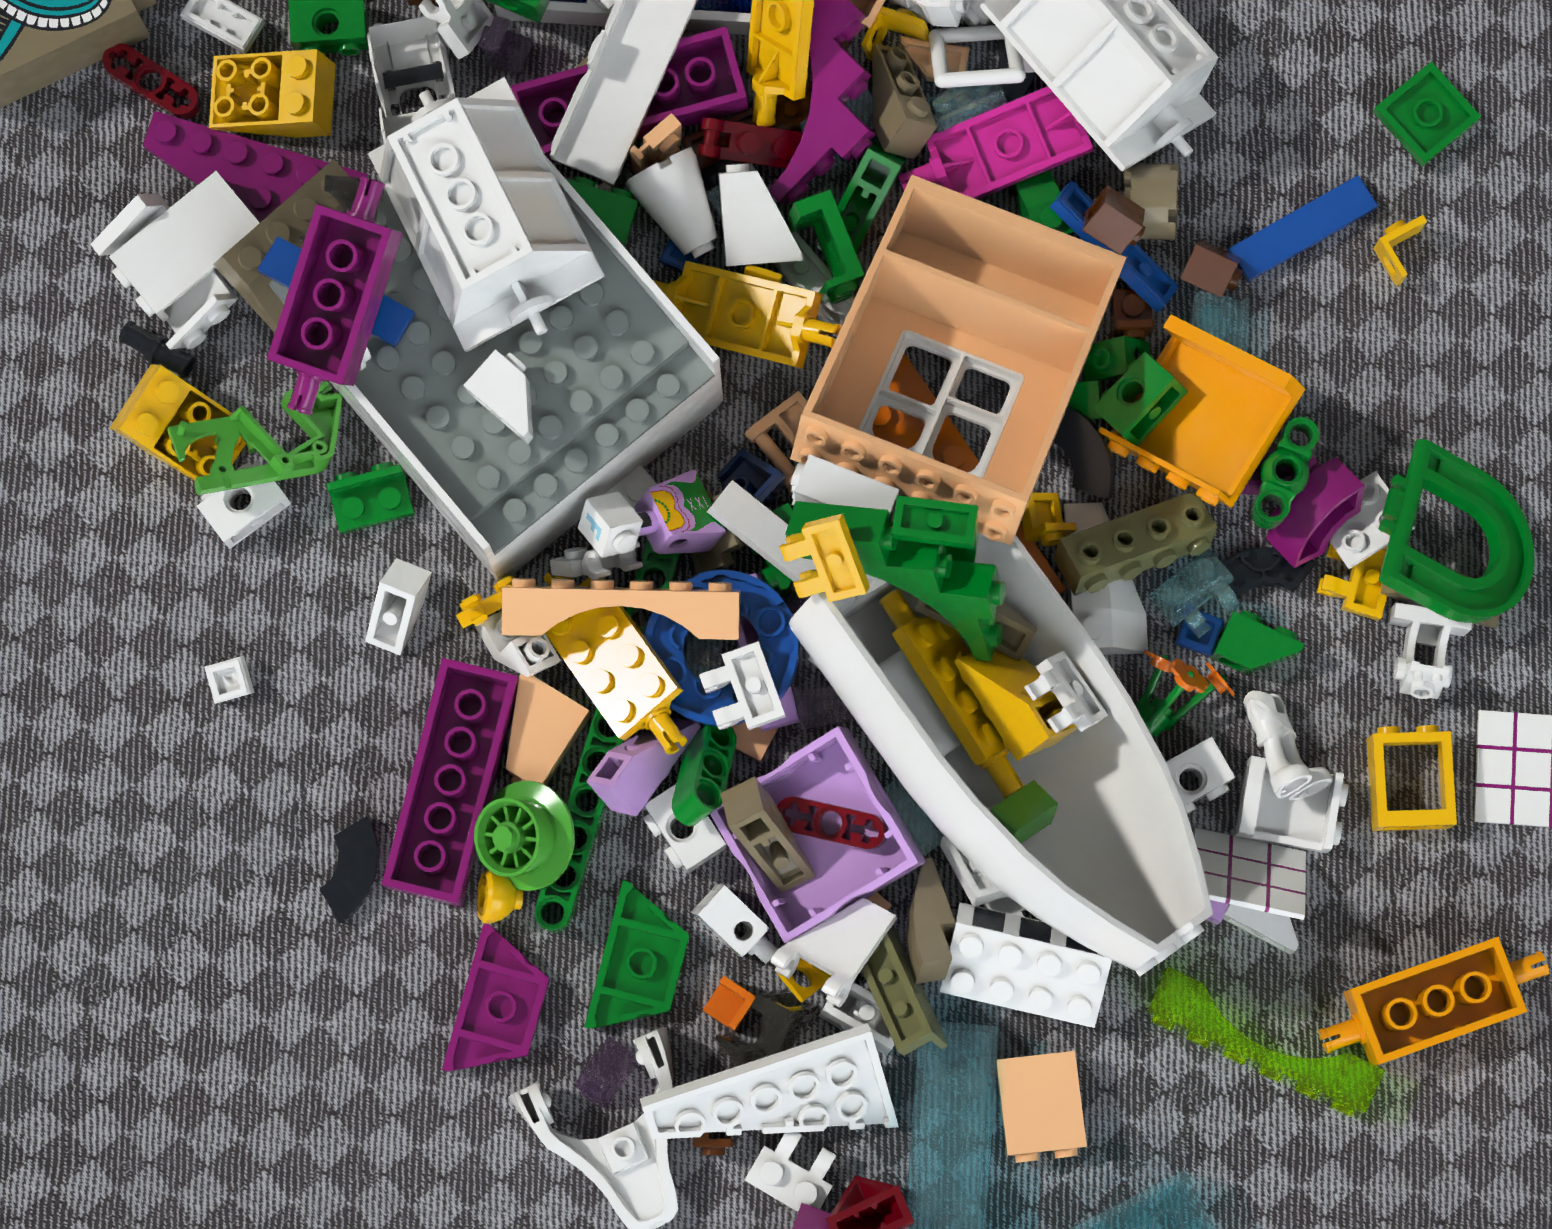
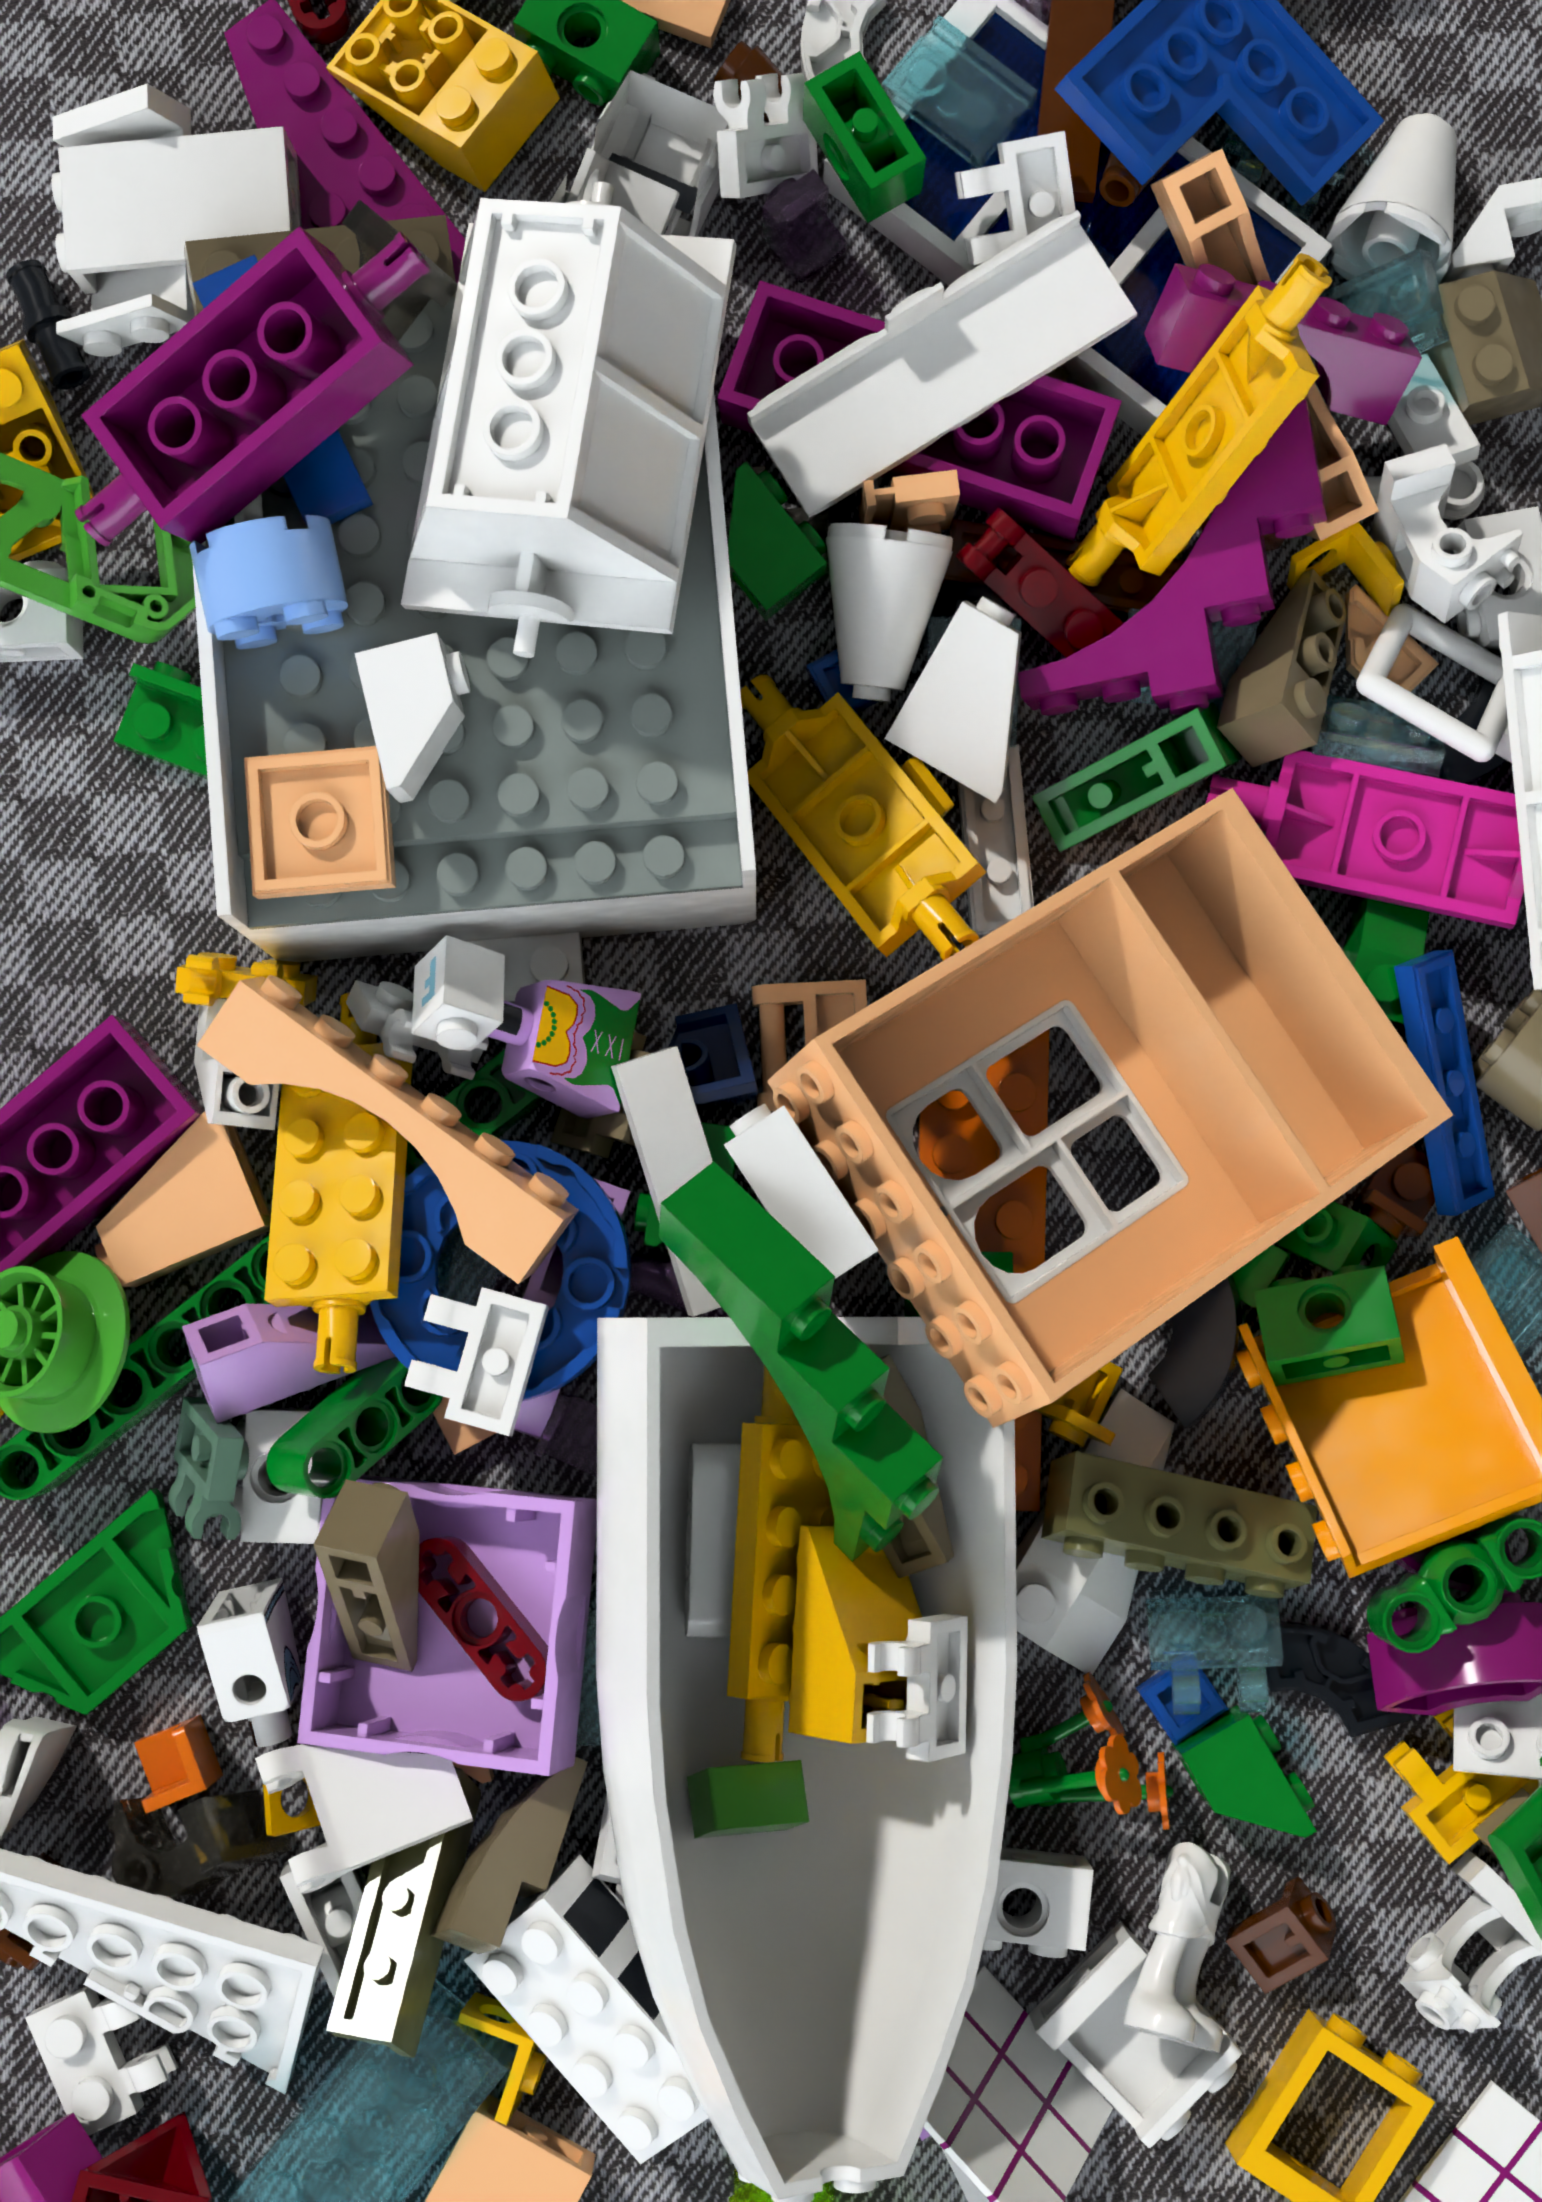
camera: 30 degrees right, 5 degrees up
(397, 606) = (118, 896): white slope -> none
(398, 378) = (268, 578): none -> light blue brick
(403, 92) = (637, 194): none -> white bracket
(497, 478) = (318, 823): none -> light nougat tile
(644, 843) = (209, 1465): none -> sand green plate
(824, 217) = (1068, 765): green panel -> none
(834, 556) = (704, 1289): yellow plate -> none
(938, 524) = (891, 1345): green panel -> none
(1007, 1025) = (527, 2064): none -> yellow bracket
(1114, 220) = (1473, 1051): reddish brown brick -> none
(1328, 709) = (1285, 1937): none -> reddish brown bracket

